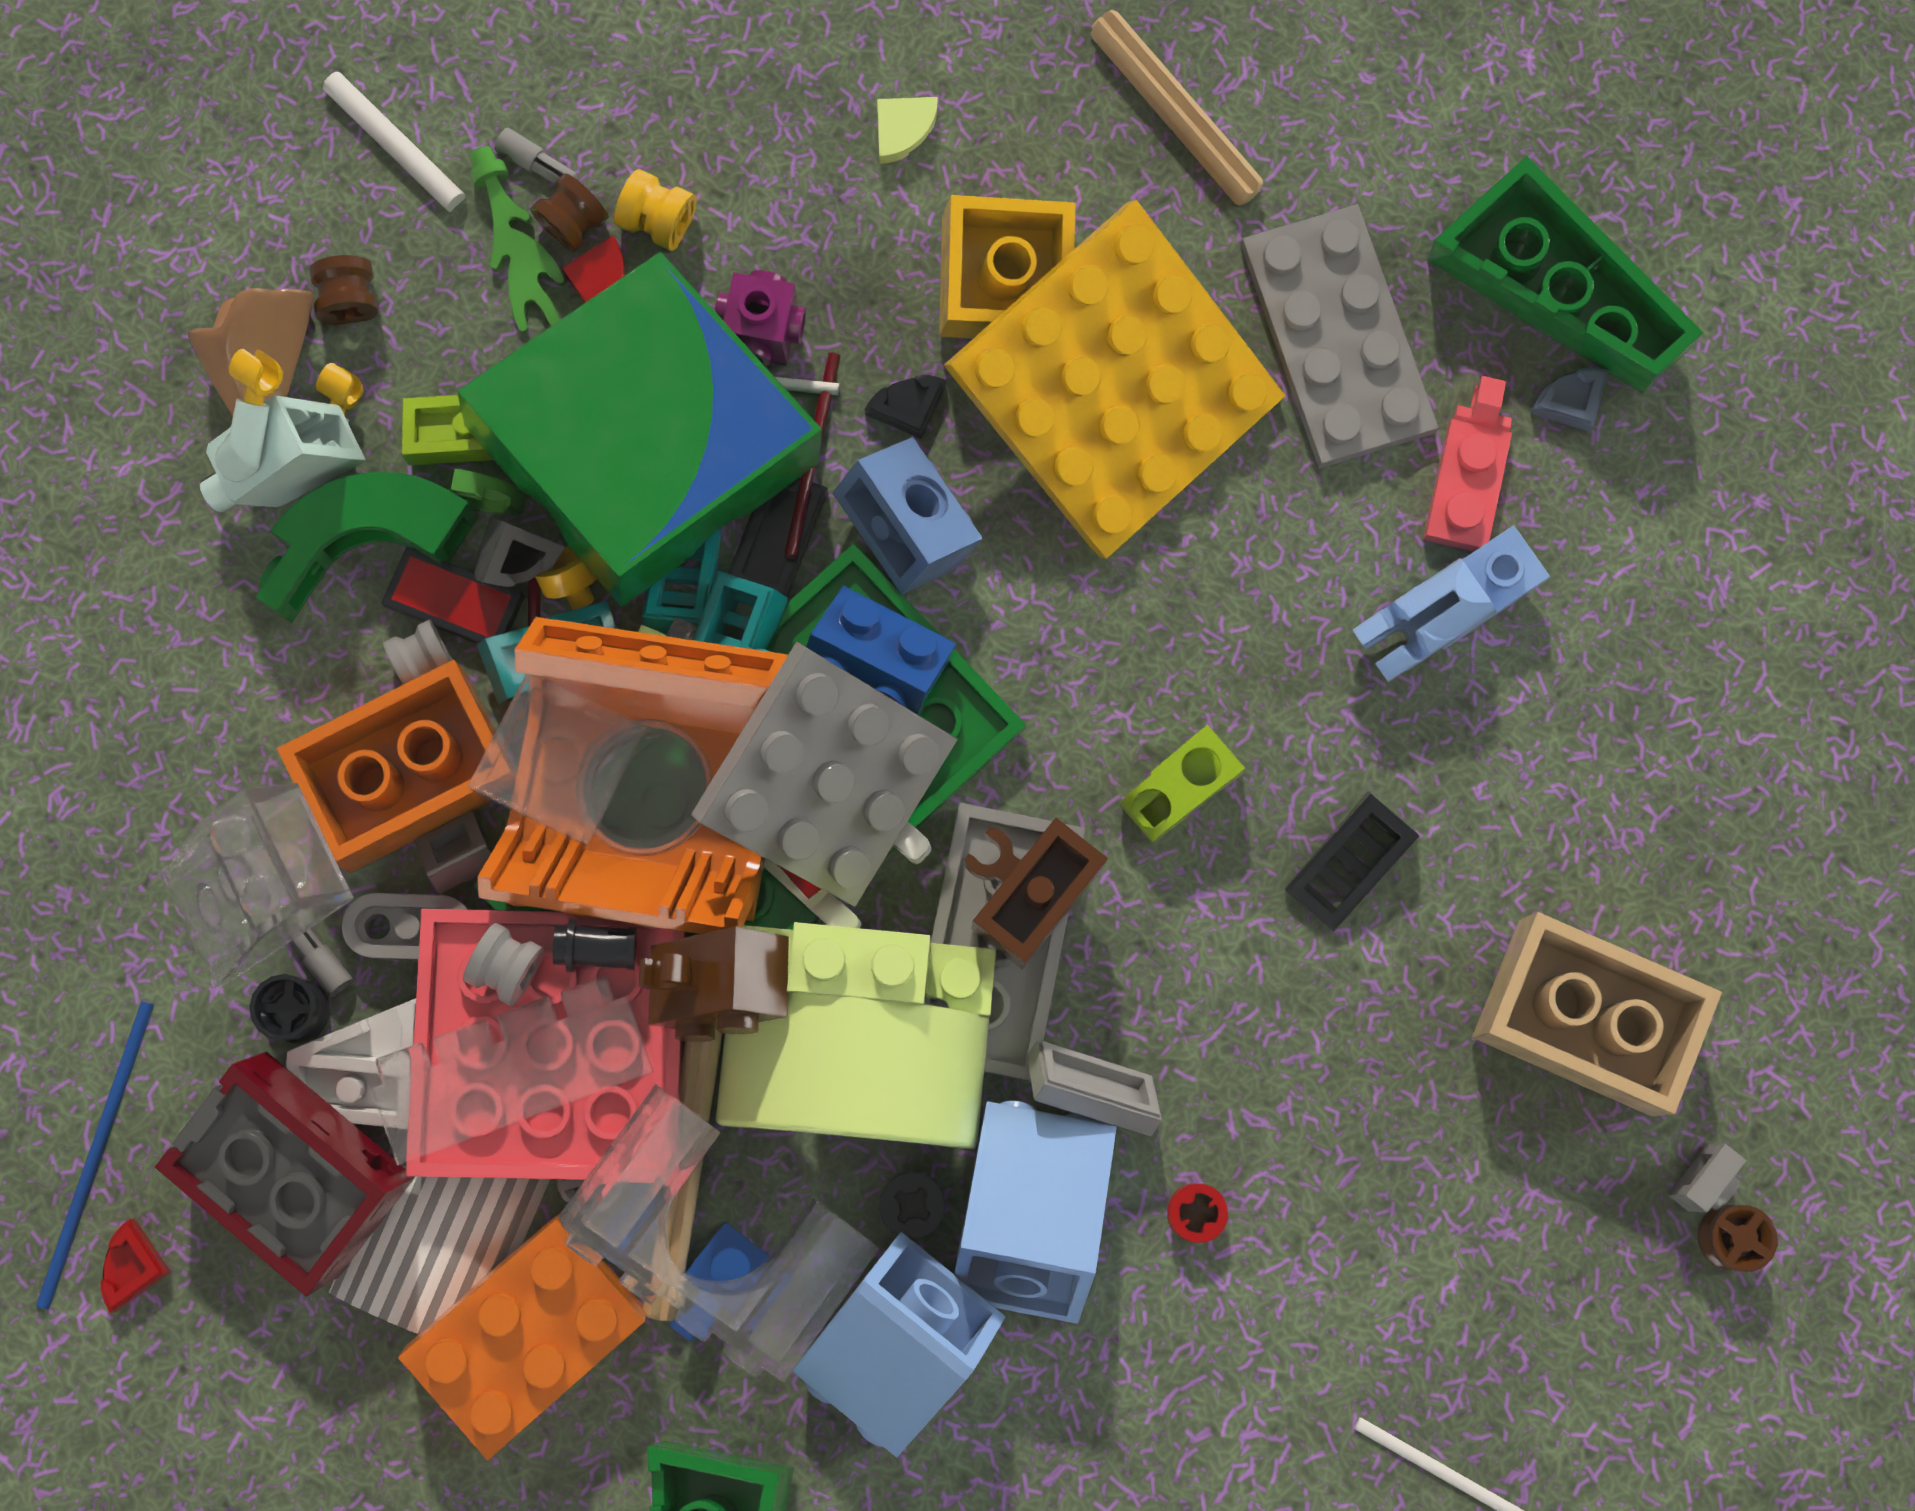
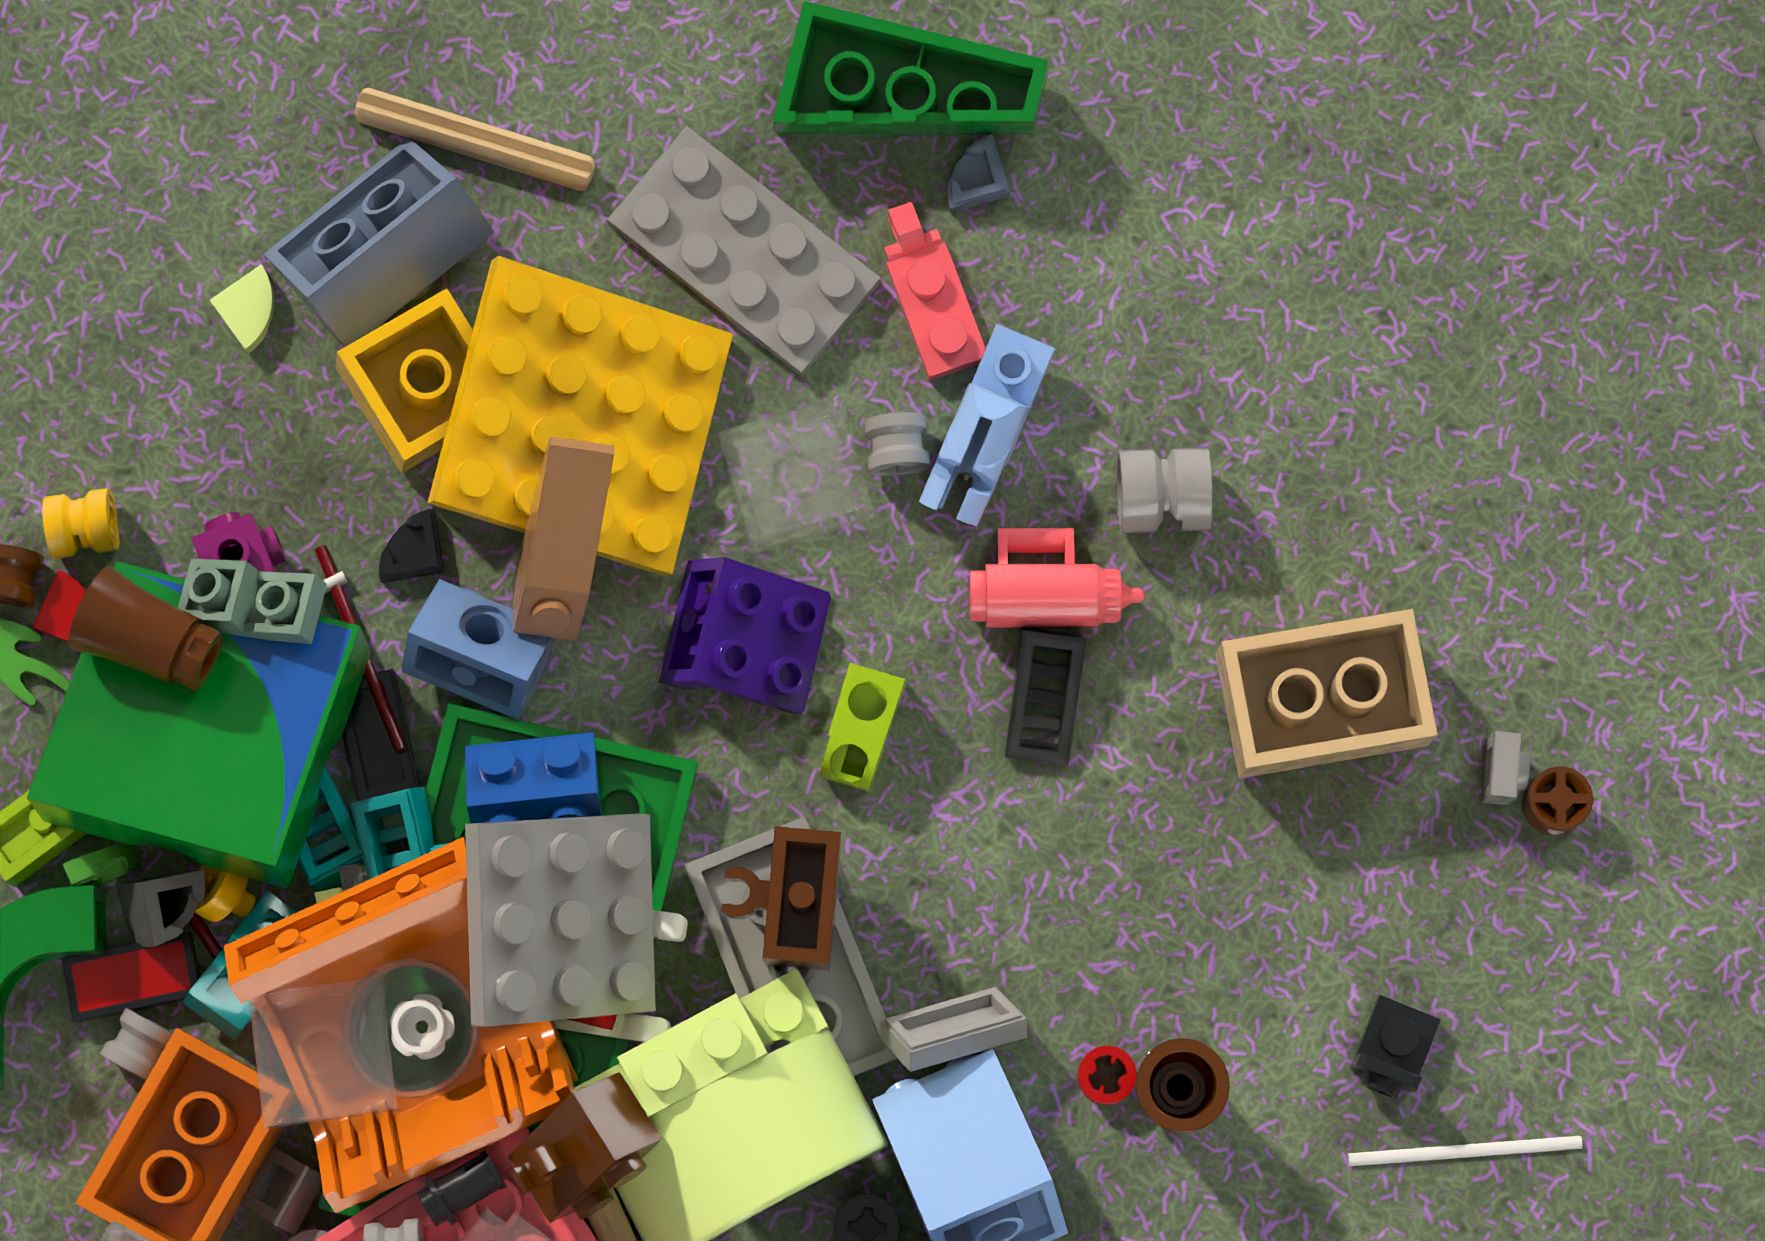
camera: 30 degrees left, 0 degrees up
(639, 315) = (143, 632): none -> reddish brown plant
(648, 774) = (405, 1020): none -> white plate
(743, 351) = (253, 602): none -> sand green slope
(1036, 463) = (561, 539): none -> medium nougat slope
(1047, 139) = (380, 242): none -> sand blue slope
(1135, 646) = (745, 634): none -> dark purple bracket
(1262, 545) = (796, 476): none -> clear tile
(1283, 1275) = (1200, 1067): none -> reddish brown plant
(1364, 571) = (897, 443): none -> light grey wheel
(1409, 775) = (1046, 593): none -> coral piece
(1459, 1354) = (1394, 1047): none -> black bracket
(1567, 755) = (1164, 490): none -> light grey wheel

